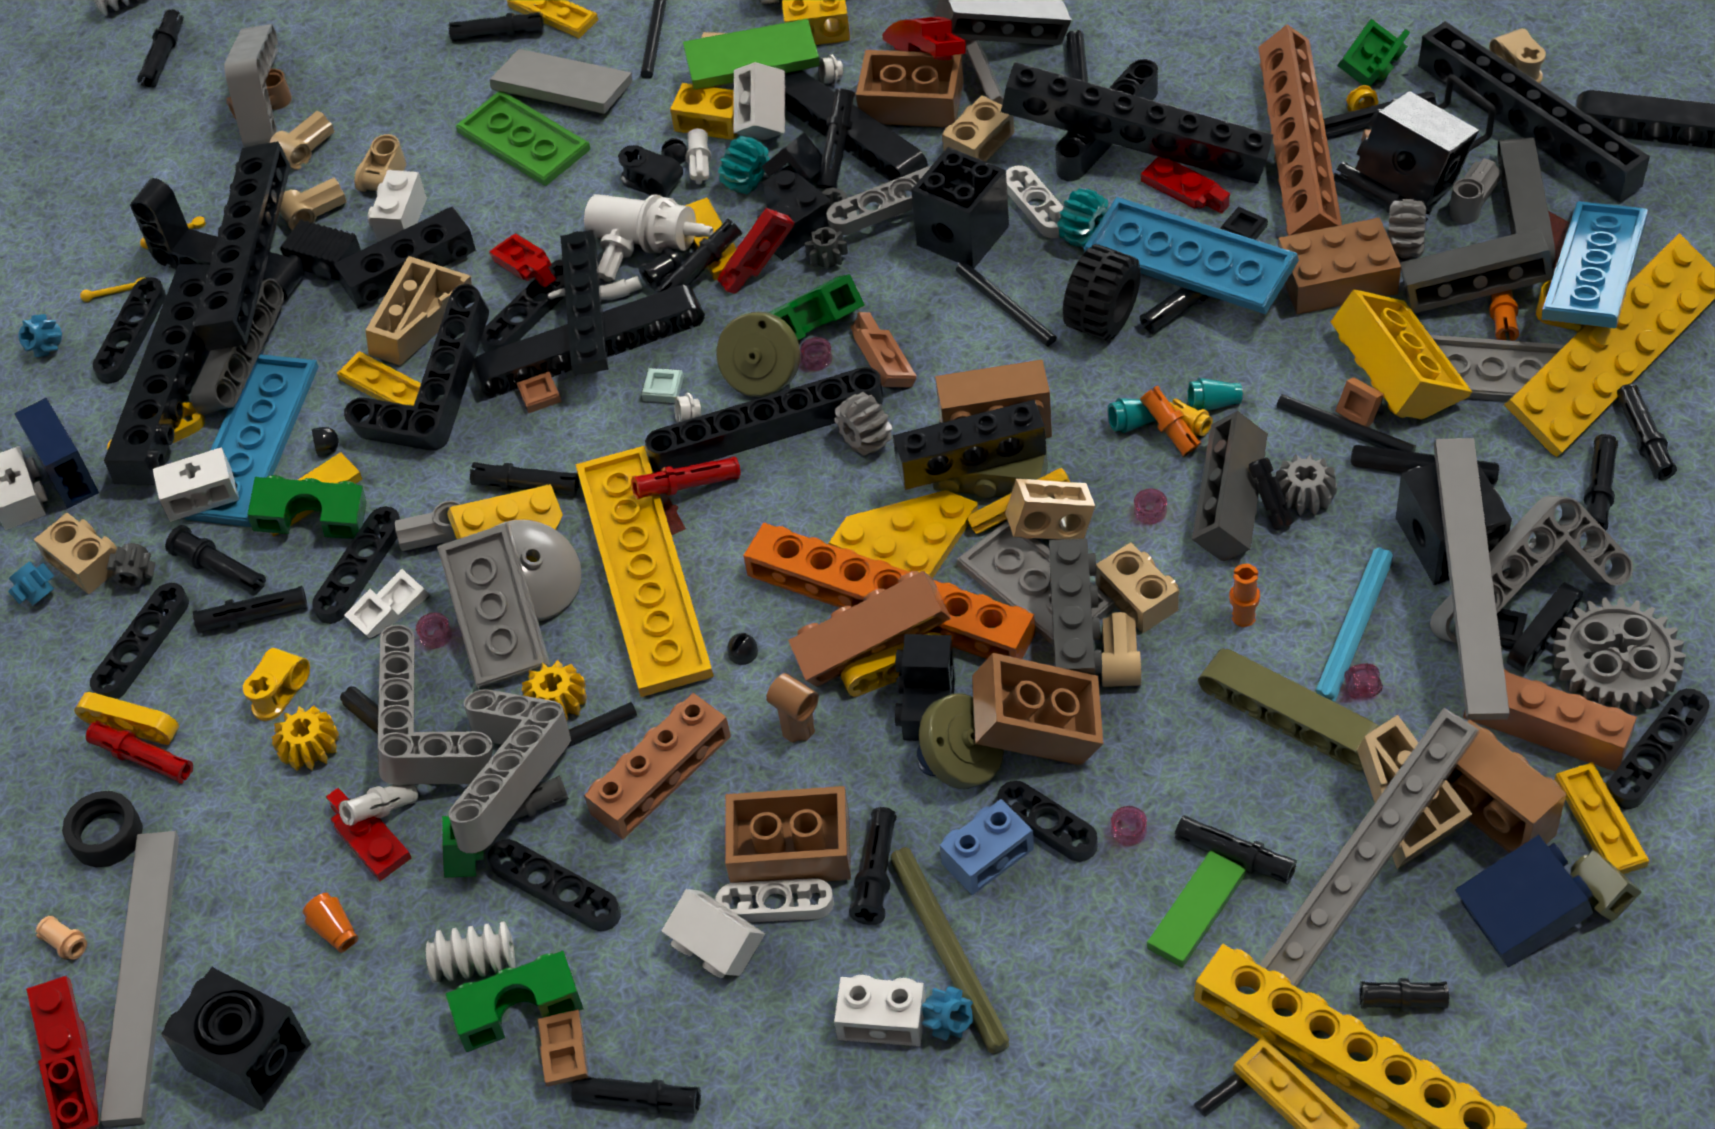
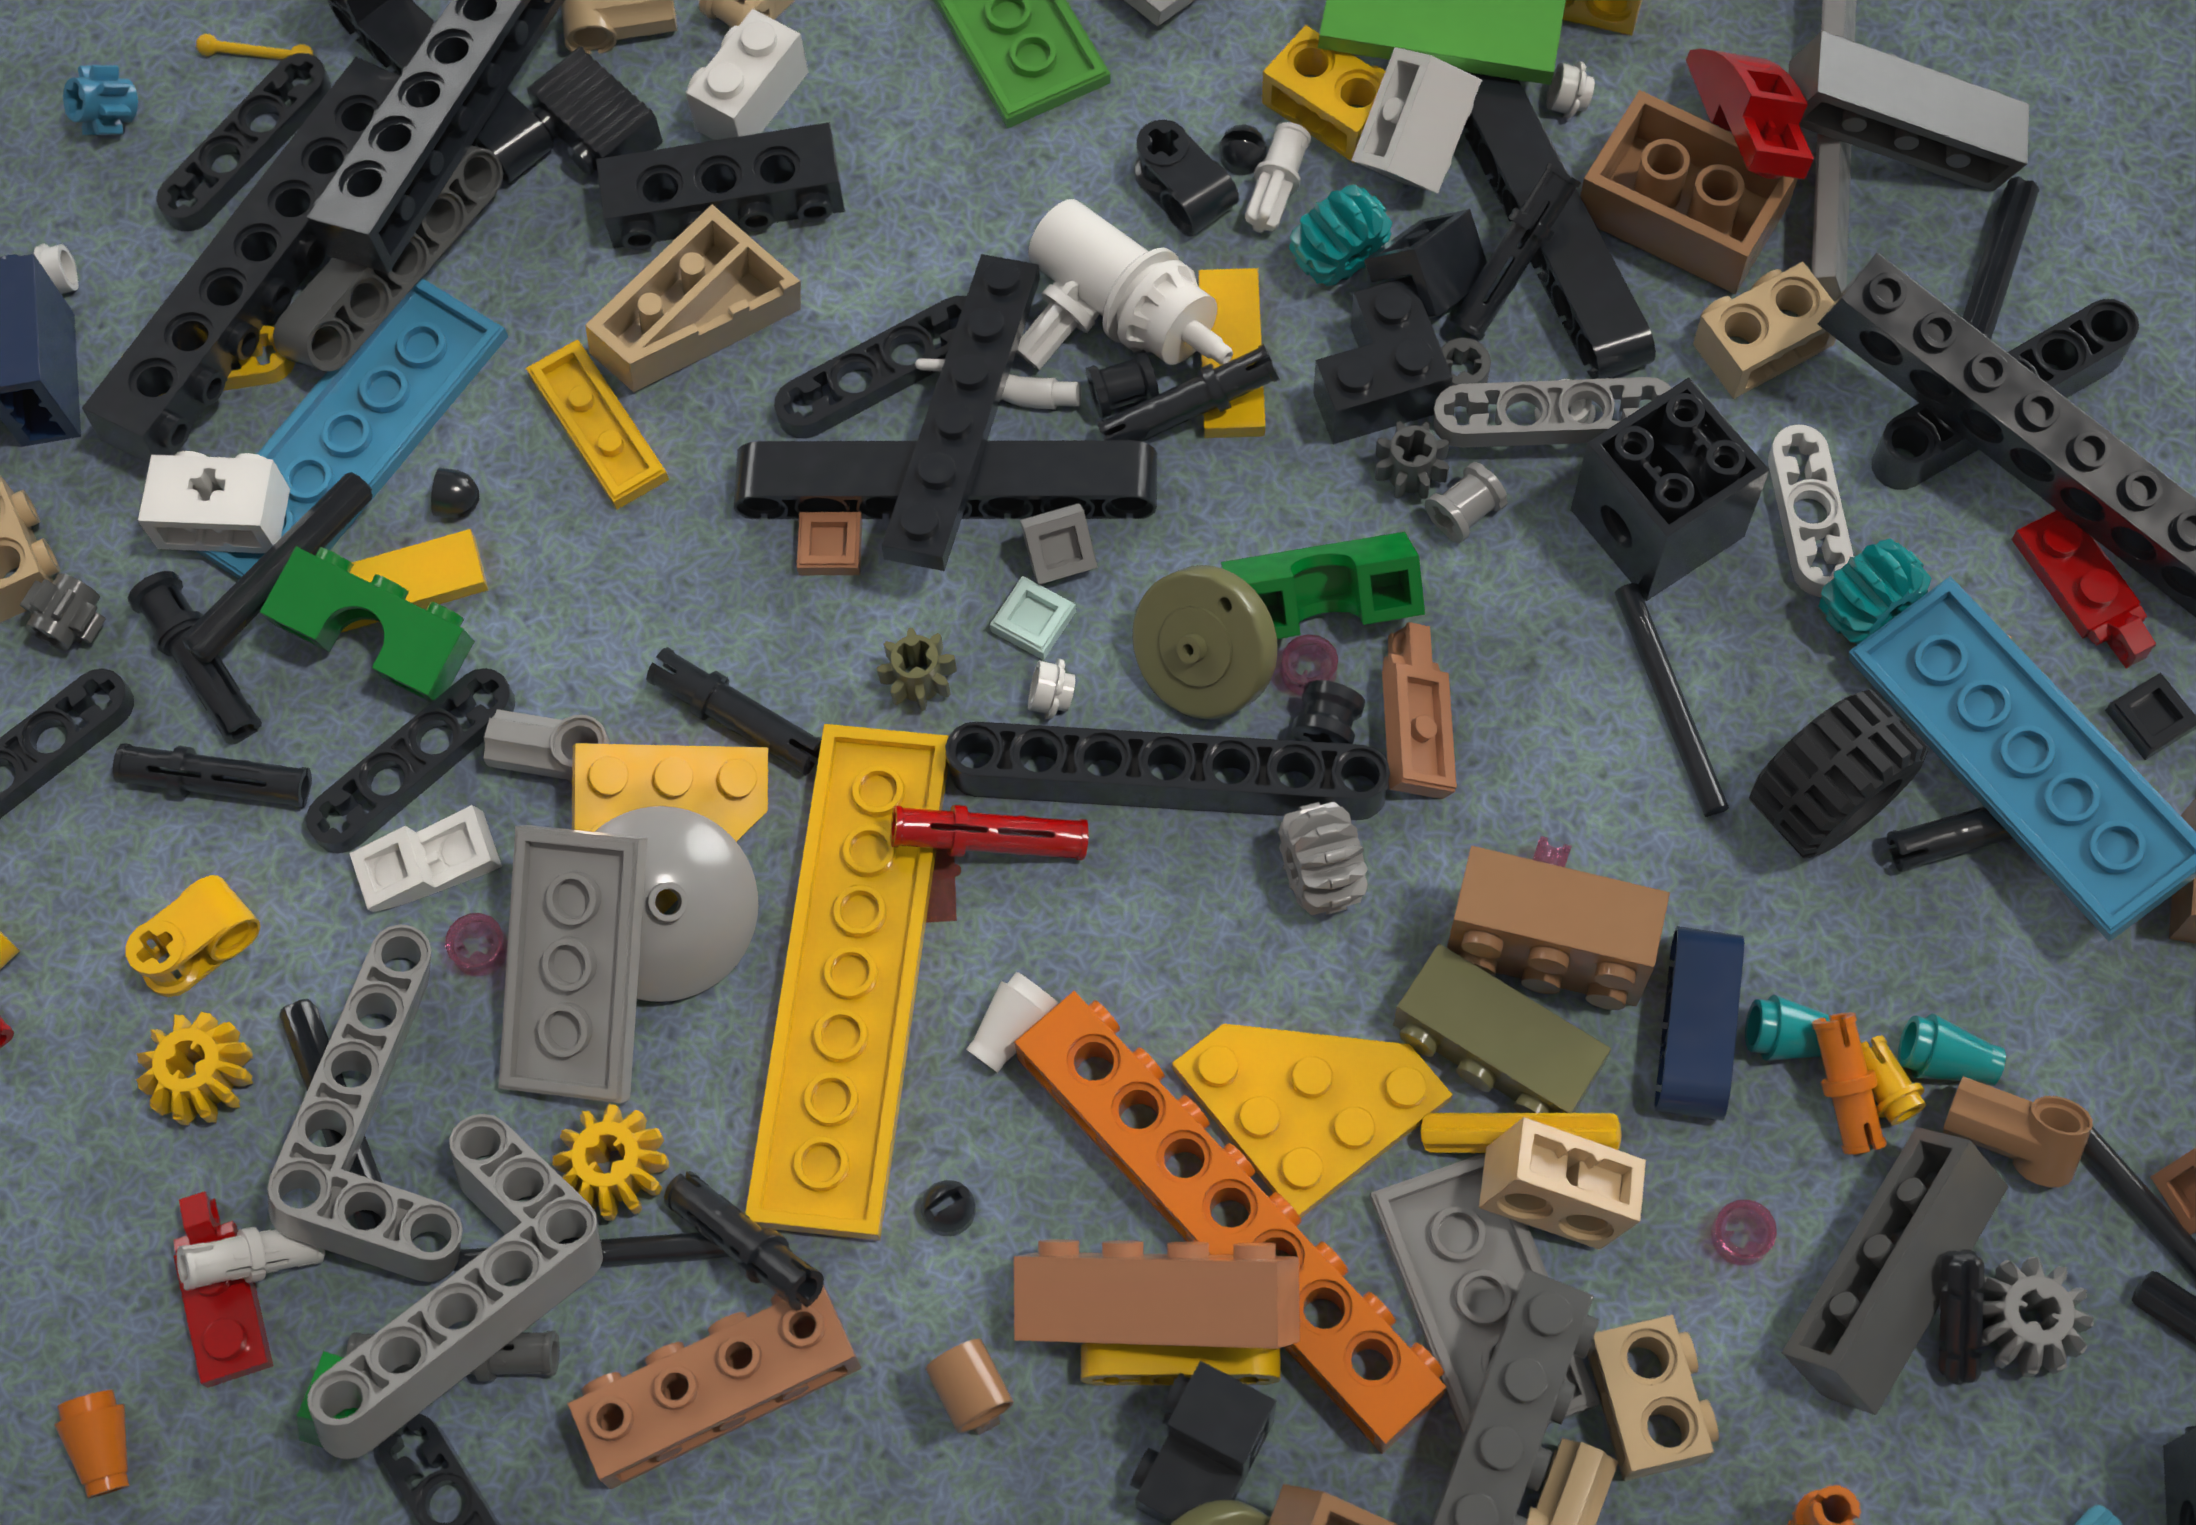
camera: 20 degrees right, 15 degrees up
(238, 509) = (250, 592): none -> black axle
(435, 382) = (663, 461): black beam -> none
(523, 260) = (904, 275): red hinge -> none
(612, 424) = (917, 684): none -> olive gear
(655, 691) = (760, 1252): none -> black pin
(661, 344) = (1058, 543): none -> light grey tile
(733, 549) = (1009, 1016): none -> white cone
(755, 249) = (1287, 426): red hinge -> none
(835, 361) = (1328, 713): none -> black wheel
(865, 252) = (1466, 502): none -> light grey bush
(969, 444) = (1477, 1004): black brick -> none
(1086, 426) = (1701, 1022): none -> dark blue beam
(1271, 409) = (2039, 1135): none -> medium nougat piece

